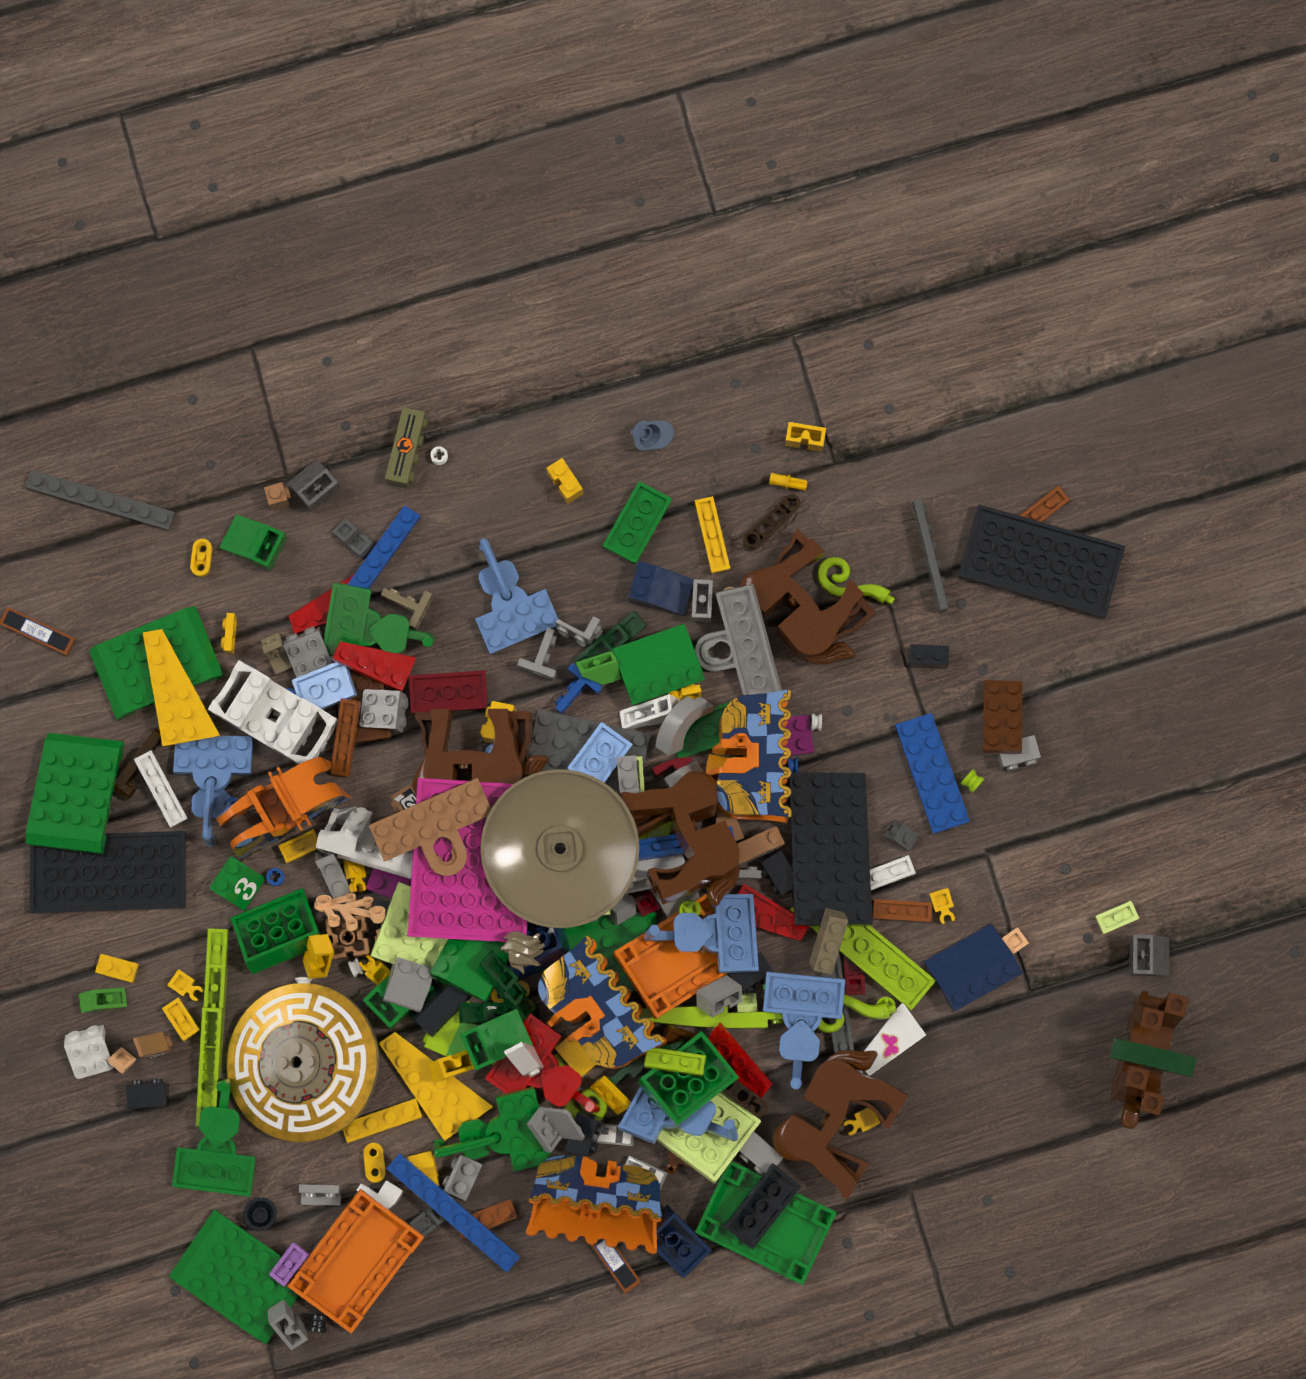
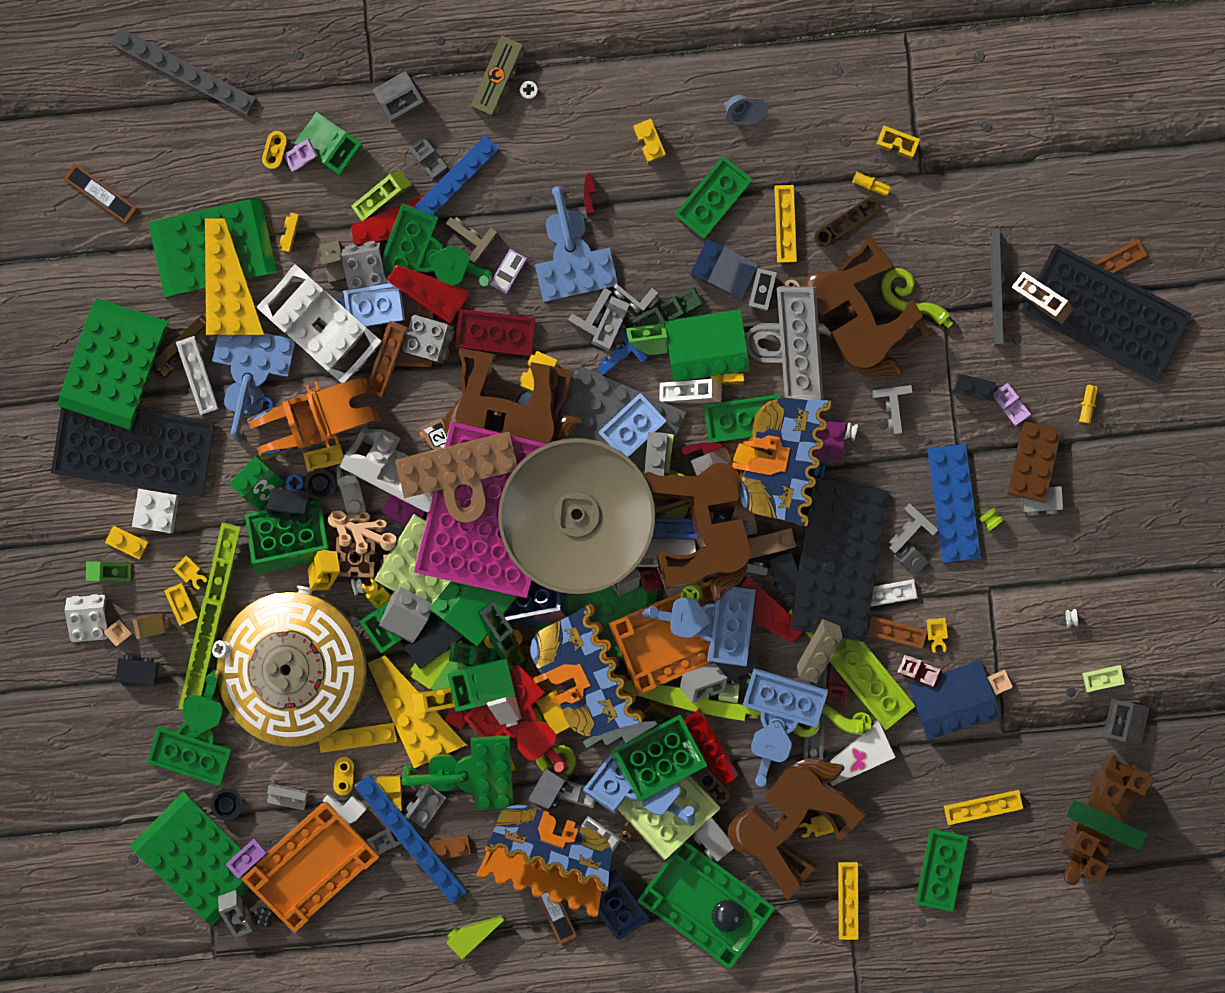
camera: 10 degrees right, 10 degrees up
(140, 930) = (155, 511): none -> white brick
(225, 1053) = (226, 649): none -> white bush
(227, 557) = (300, 155): none -> lavender slope
(272, 898) = (288, 504): none -> black brick
(277, 496) = (360, 101): medium nougat brick -> none
(300, 872) = (320, 484): none -> black hat
(313, 580) = (381, 194): none -> lime slope
(355, 872) = (373, 495): yellow plate -> none
(450, 631) = (508, 271): none -> slope
(477, 1079) = (456, 718): none -> red plate
(515, 538) = (589, 188): none -> dark red slope
(522, 949) = (522, 605): dark tan hair -> none
(531, 1303) = (470, 936): none -> lime slope
(553, 1124) = (518, 776): light grey bracket -> none
(559, 659) = (610, 323): none -> light grey bracket
(610, 1095) = (581, 756): yellow plate -> none
(675, 1061) = (649, 740): lime tile -> none
(677, 722) = (716, 408): light grey arch -> none
(762, 1206) = (705, 889): black slope -> none
(790, 1230) = (727, 915): none -> black hat
(852, 688) = (892, 405): none -> light grey bracket
(894, 804) = (910, 528): none -> light grey bracket
(909, 1191) = (848, 900): none -> yellow plate
(933, 946) = (919, 671): none -> slope
(968, 667) = (1011, 405): none -> lavender slope
(978, 556) = (1043, 298): none -> slope
(996, 1141) = (941, 870): none -> green plate
(1025, 1070) = (983, 807): none -> yellow plate
(1043, 652) = (1088, 404): none -> yellow axle
(1072, 863) = (1071, 618): none -> white bush

